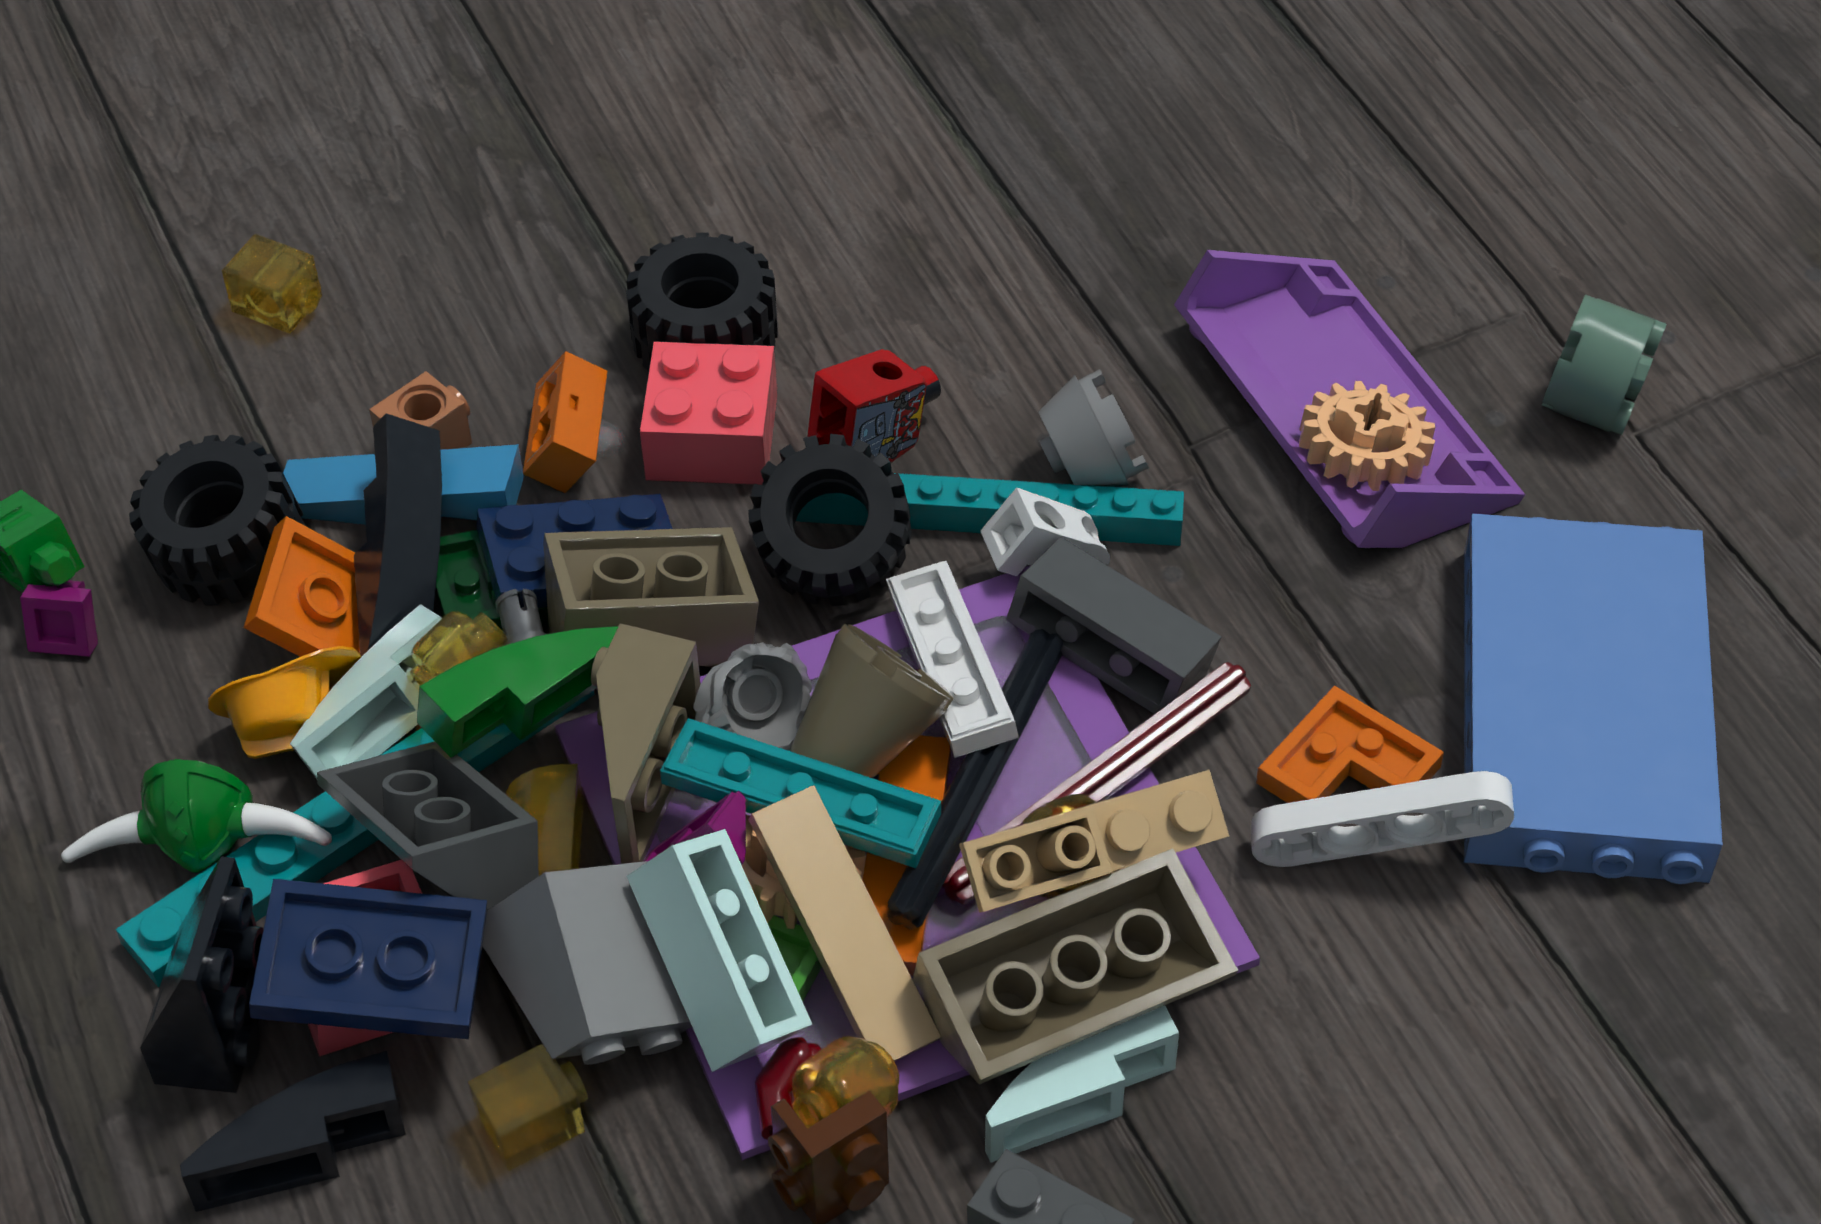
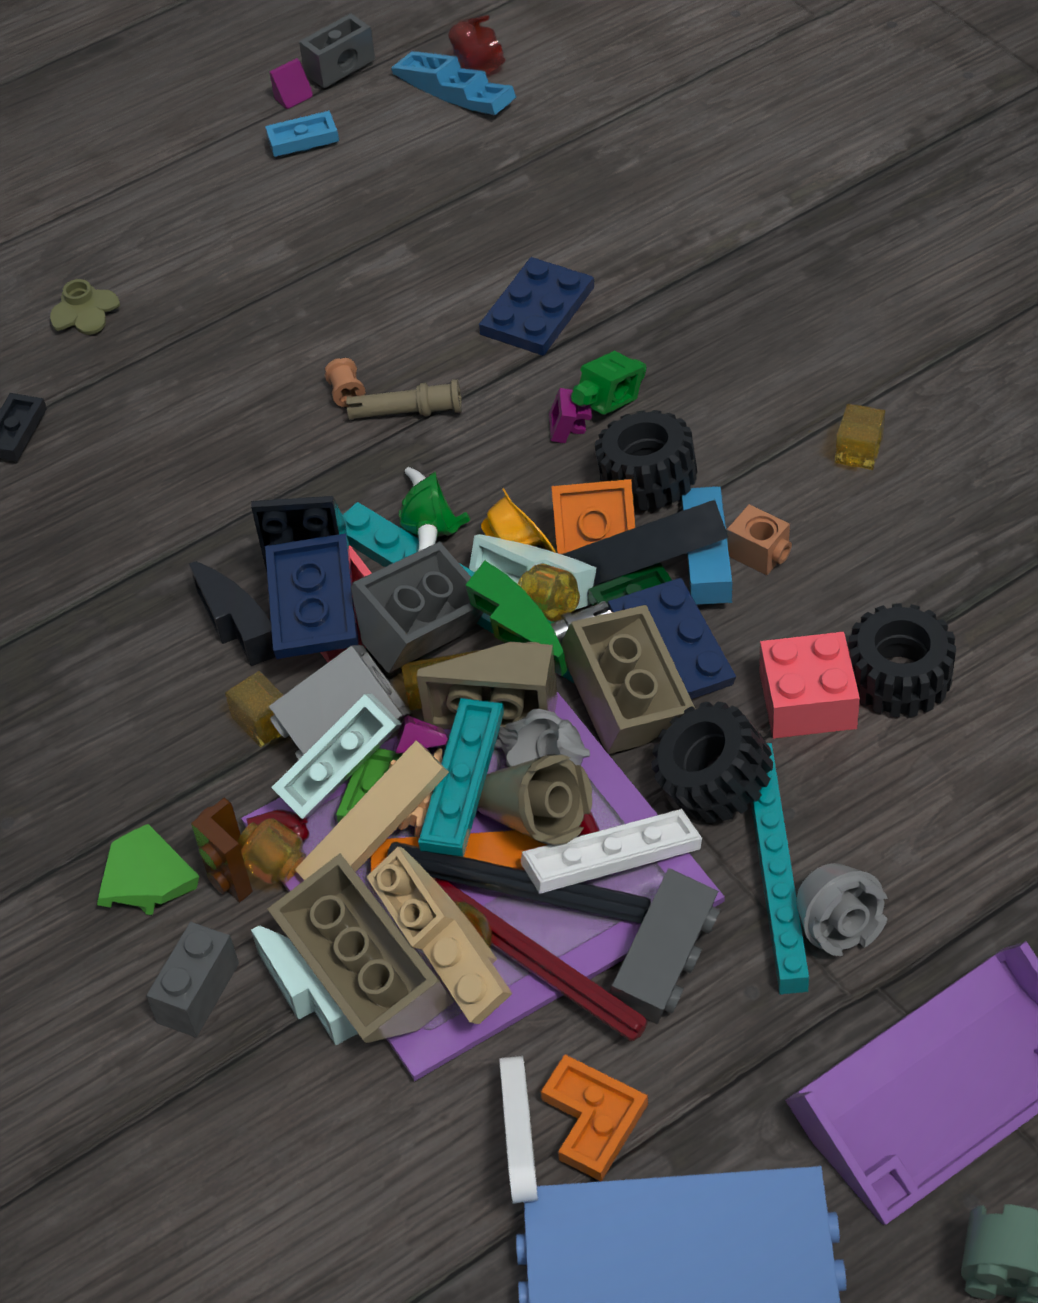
camera: 85 degrees right, 0 degrees up
(568, 424) = (778, 611): orange piece -> none
(872, 401) = (826, 770): red torso -> none
(1031, 524) = (739, 896): white leg -> none
(1366, 435) = (910, 1083): light nougat gear -> none

